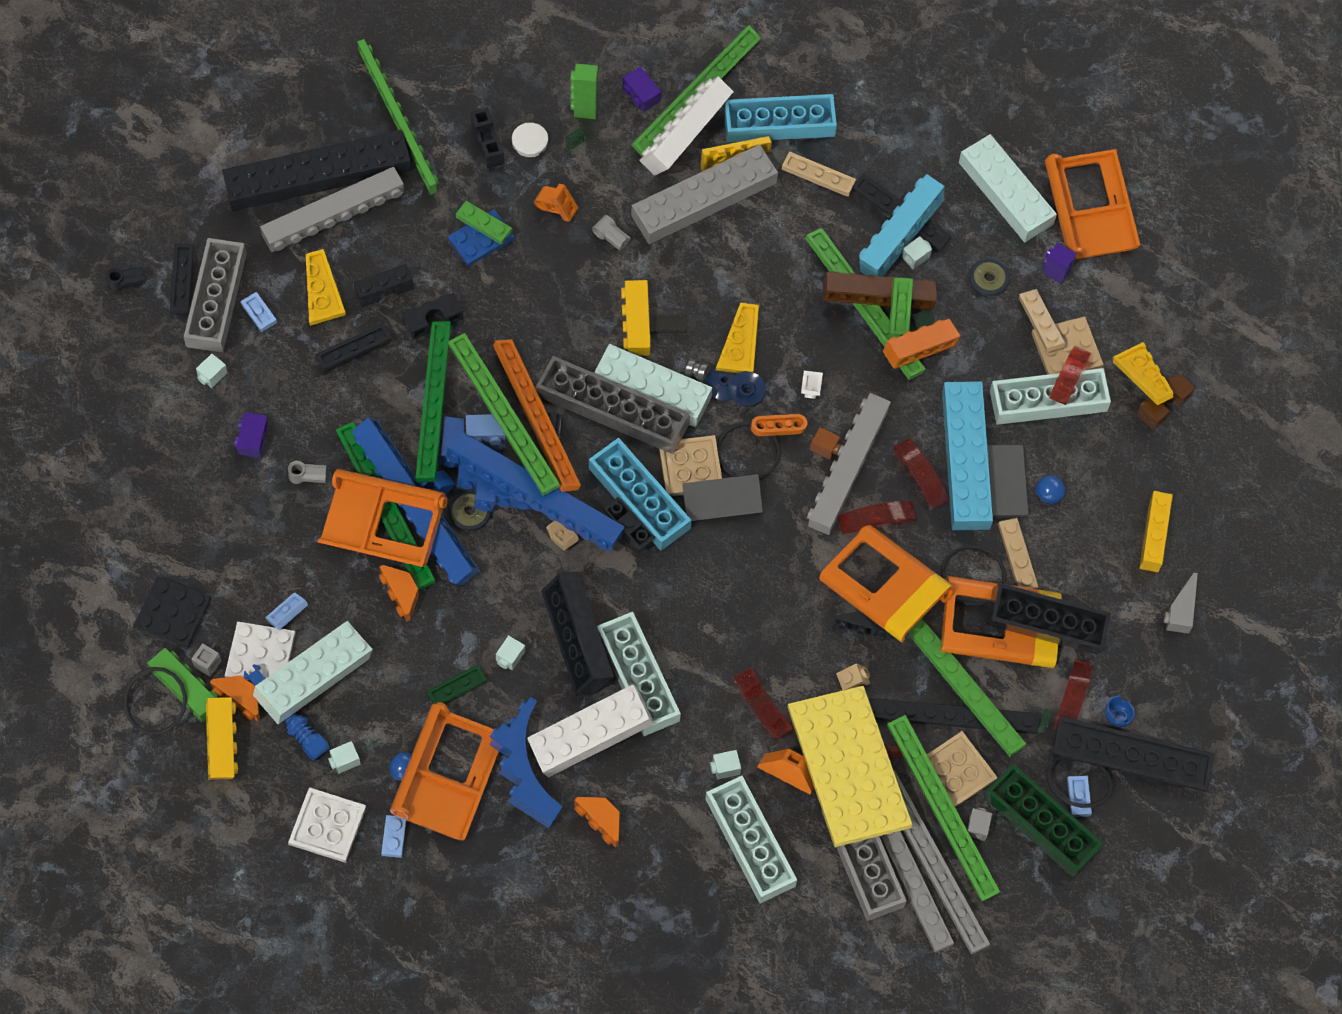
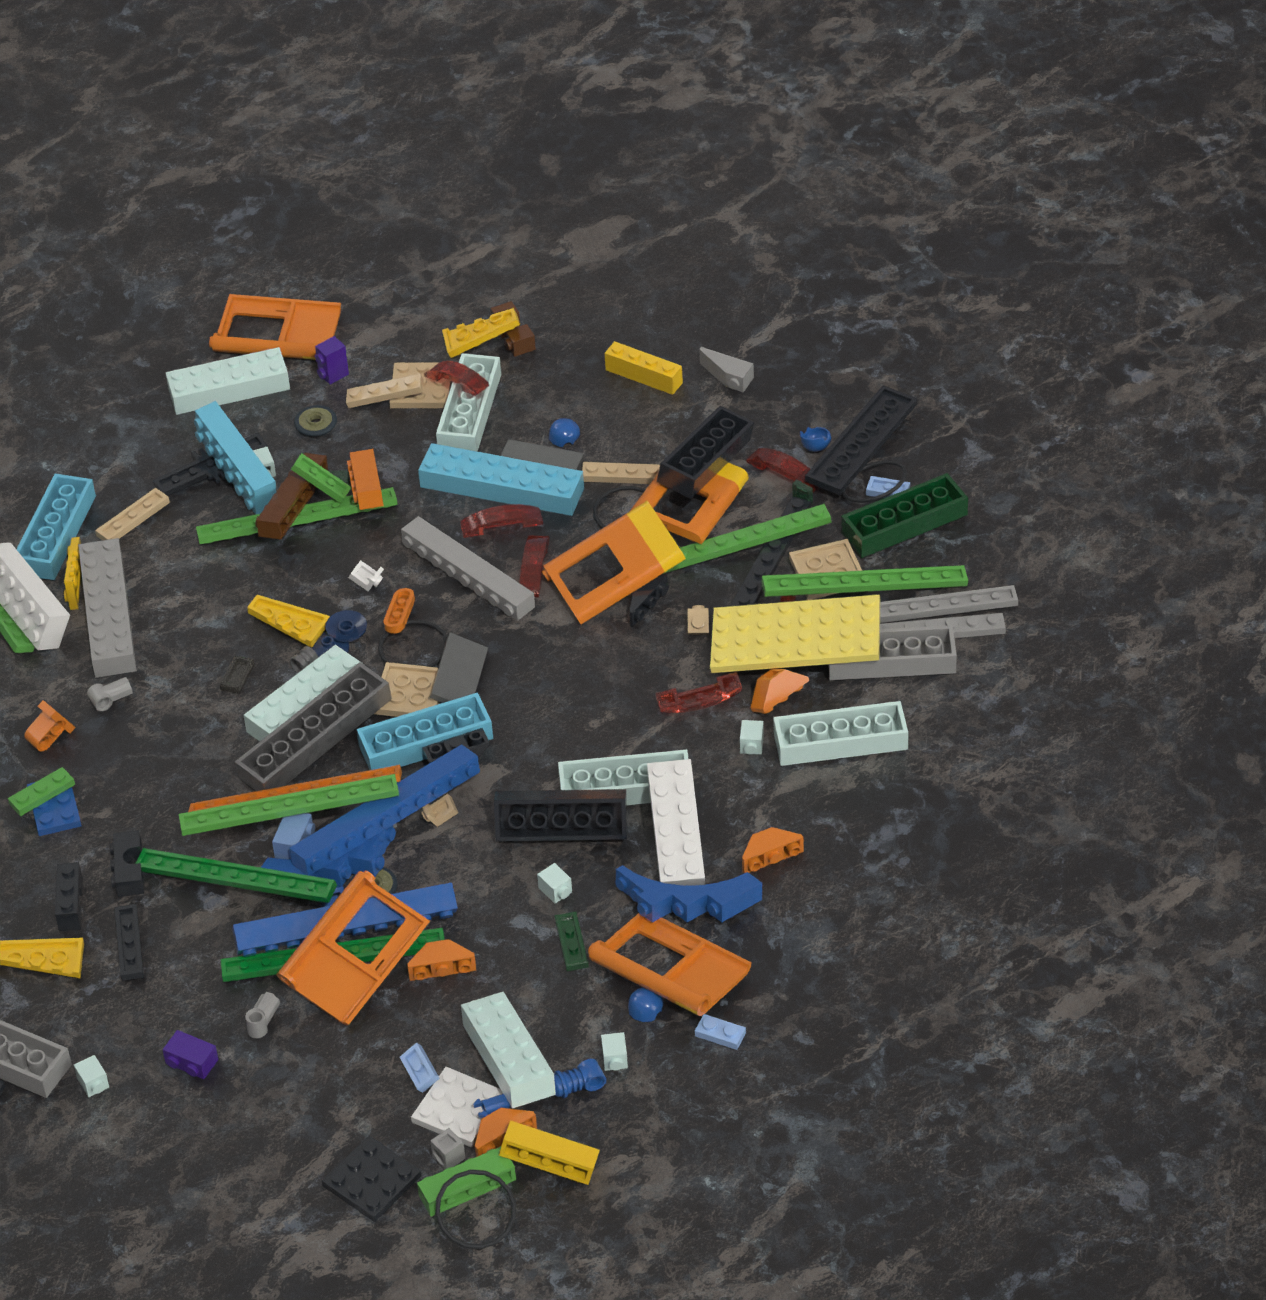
camera: 65 degrees left, 20 degrees down
(258, 312) = (40, 1018): light blue plate -> none
(327, 825) = (685, 1085): white plate -> none
(637, 317) = (218, 692): yellow brick -> none
(825, 443) = (436, 581): dark orange brick -> none
(979, 823) = (889, 560): light grey brick -> none

